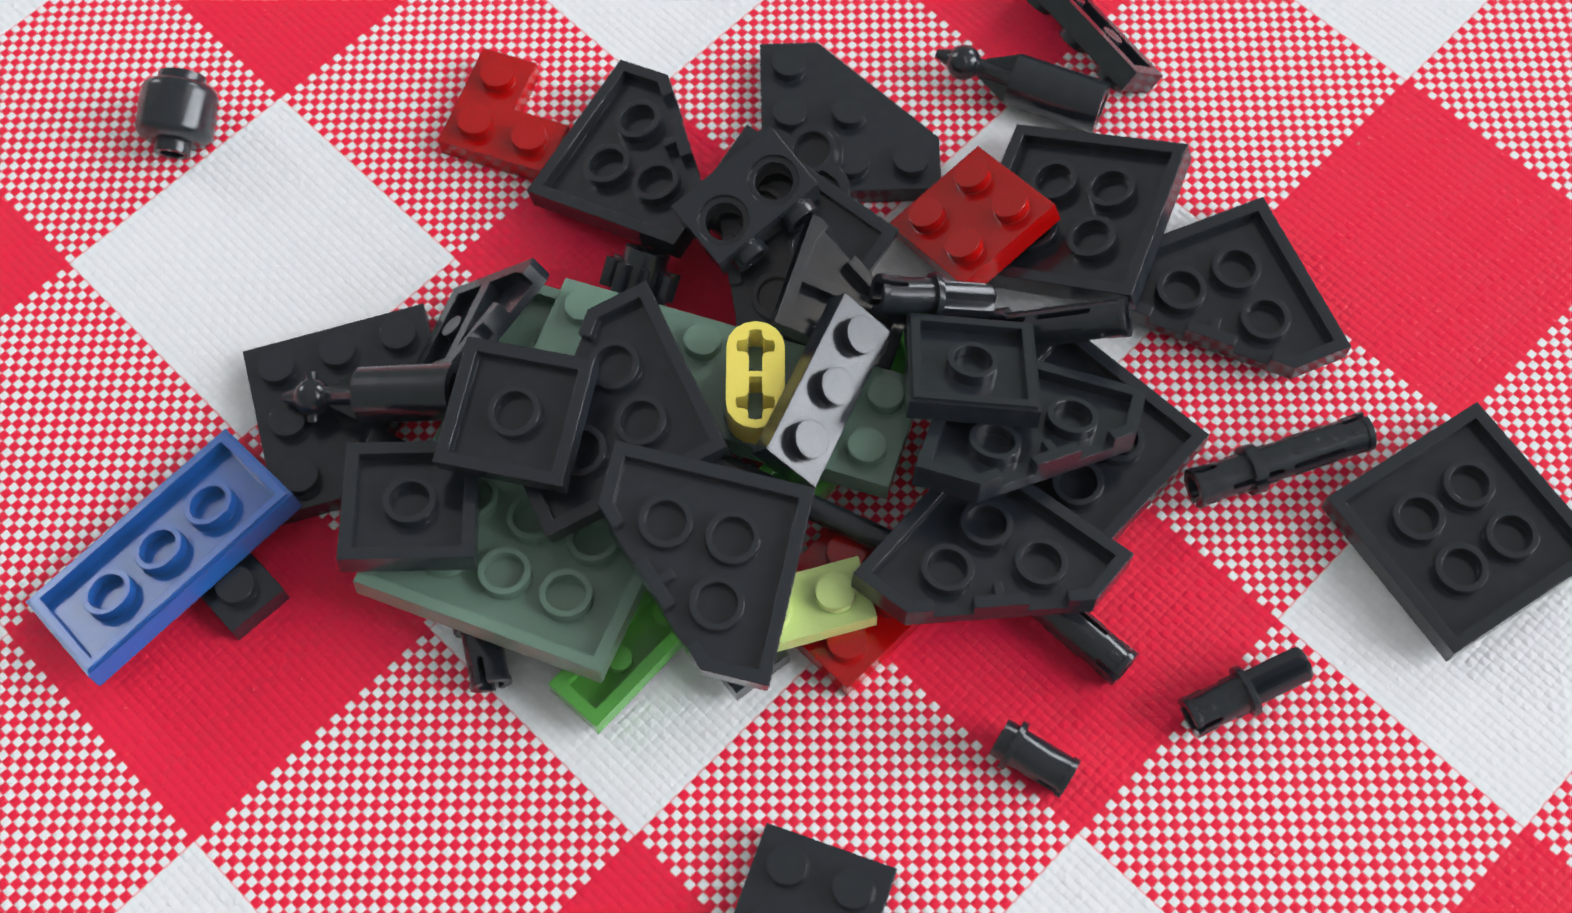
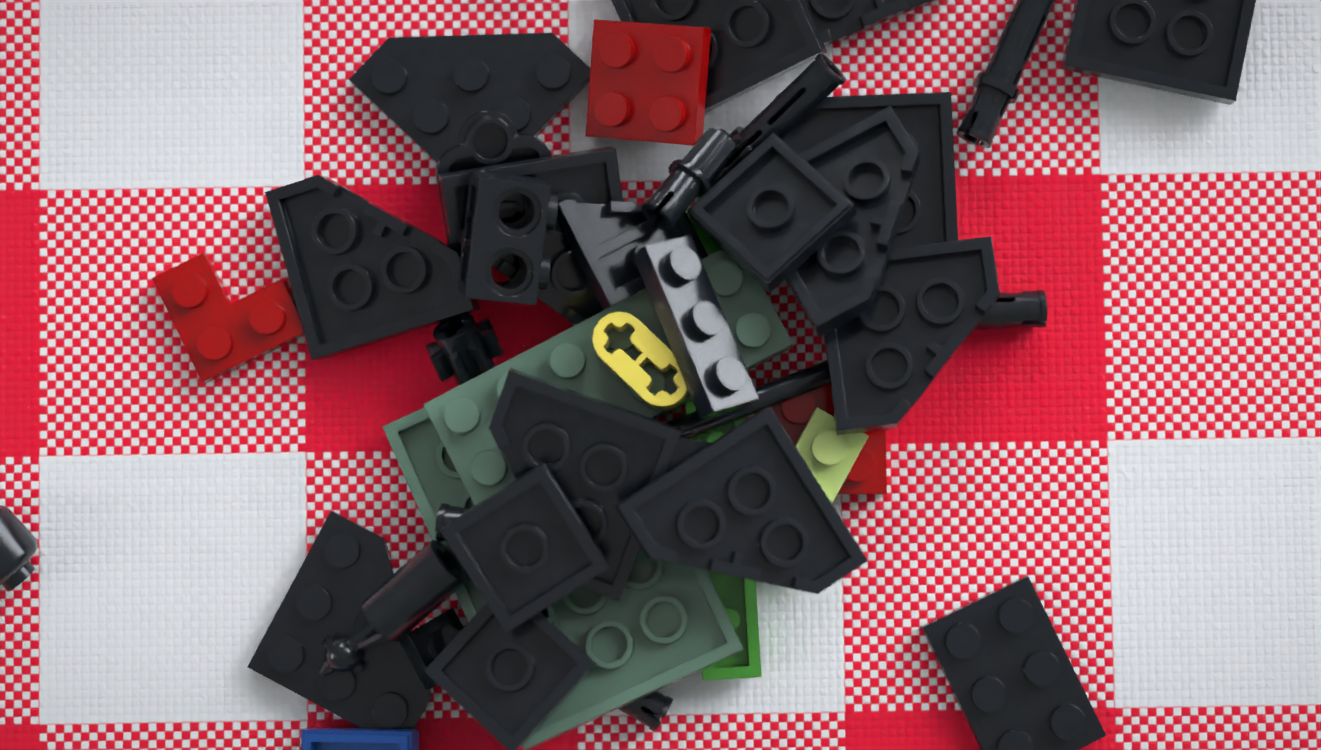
camera: 50 degrees left, 20 degrees up
(483, 310) = (392, 493): black wing -> none
(1034, 757) = (1040, 423): black pin -> none
(1244, 691) = (1129, 249): black axle -> none

